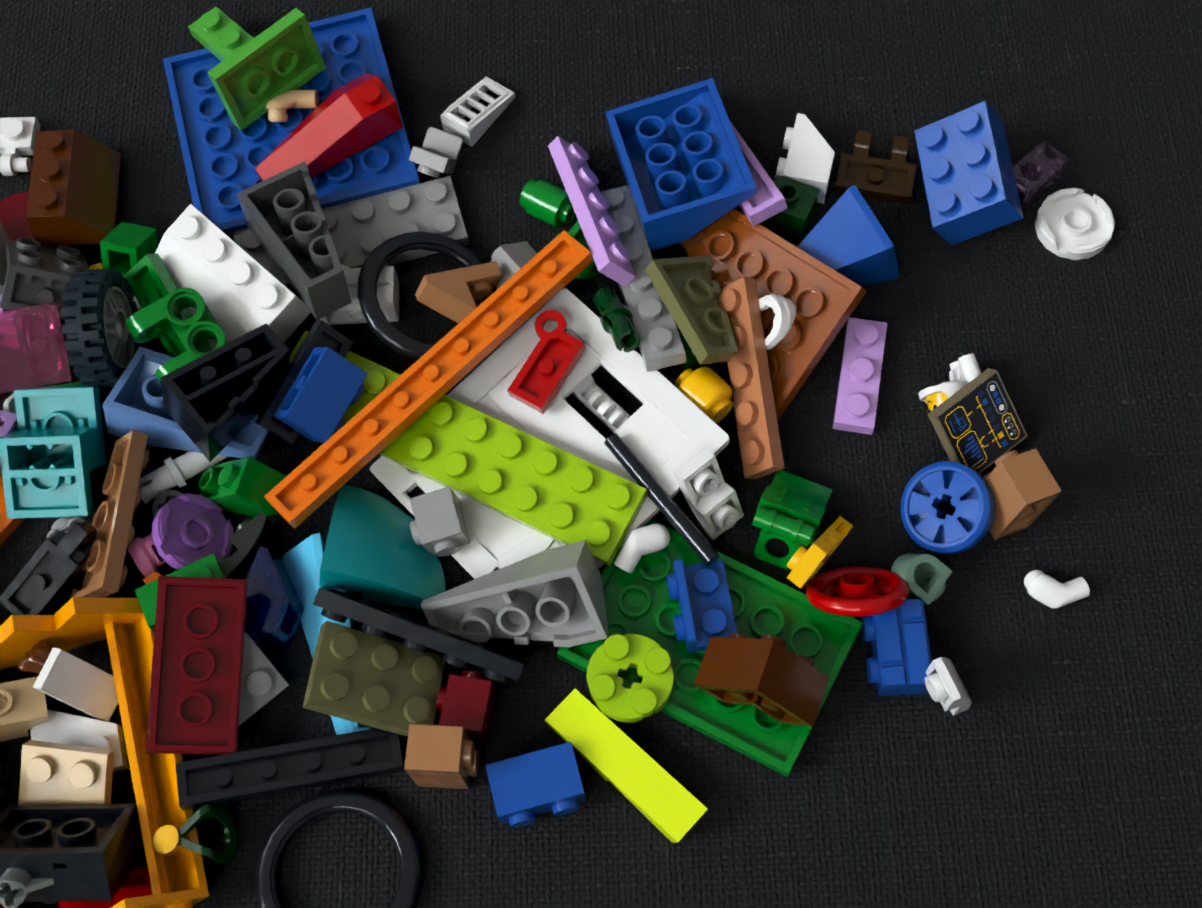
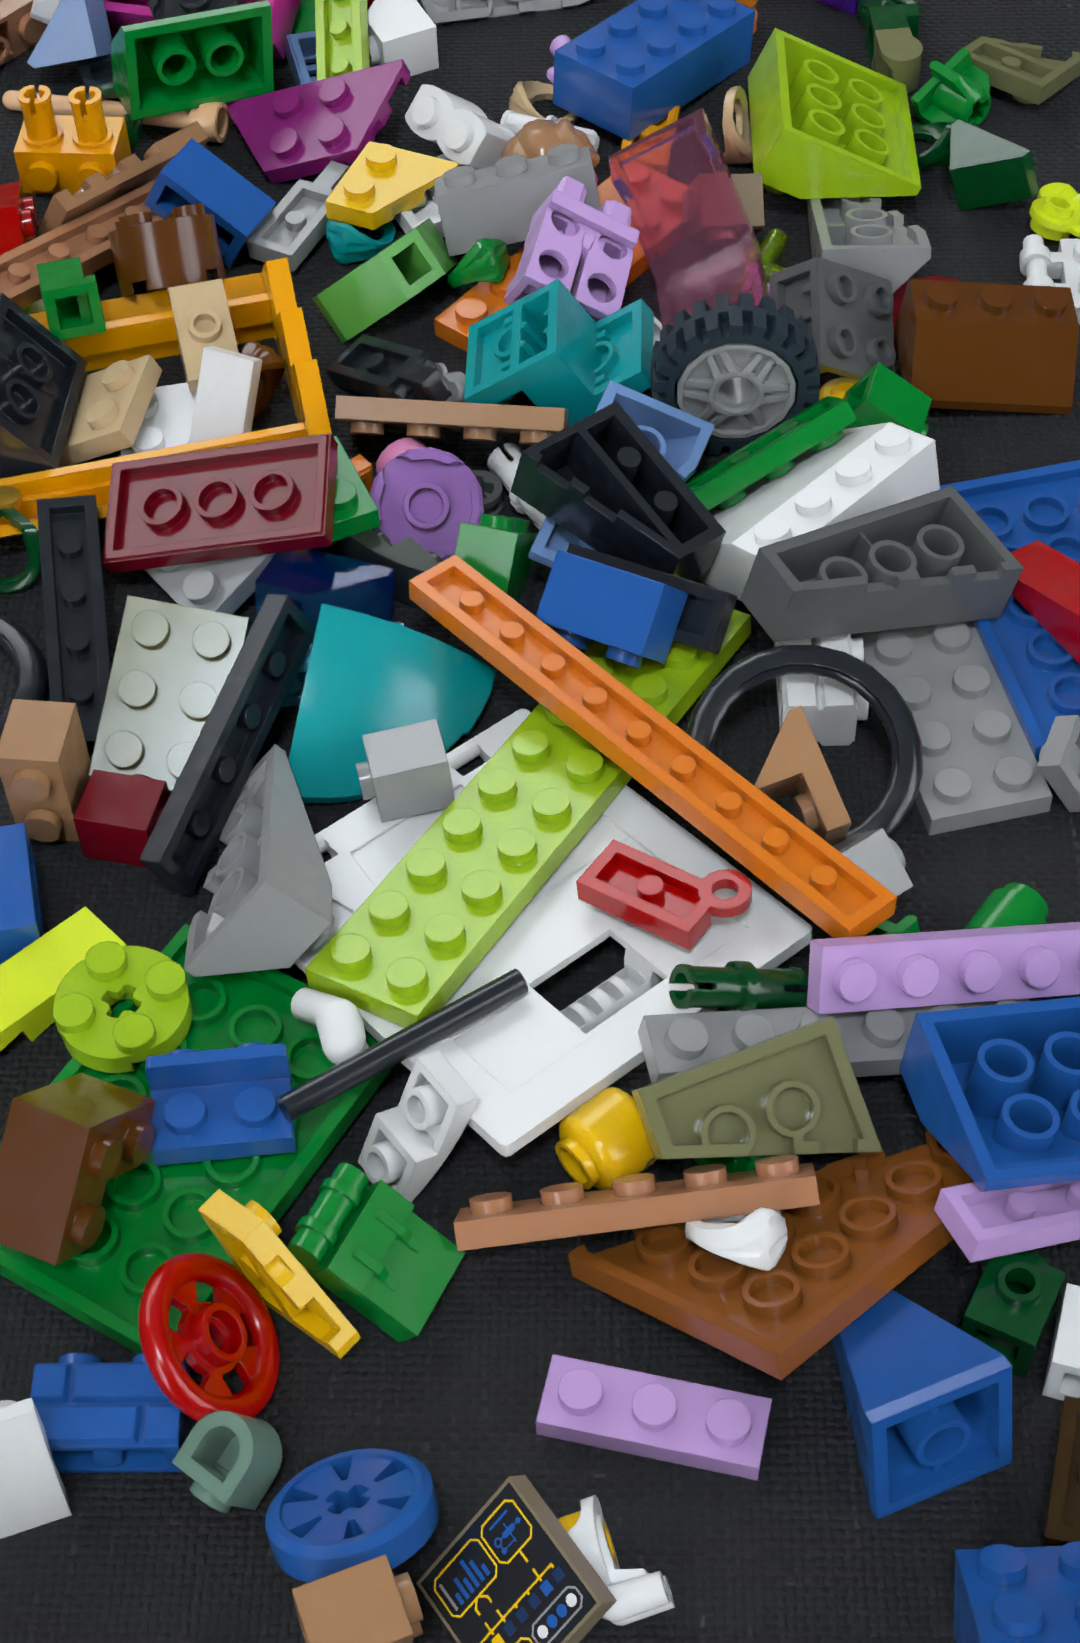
camera: 90 degrees right, 15 degrees down
(163, 316) = (736, 456): green piece -> none

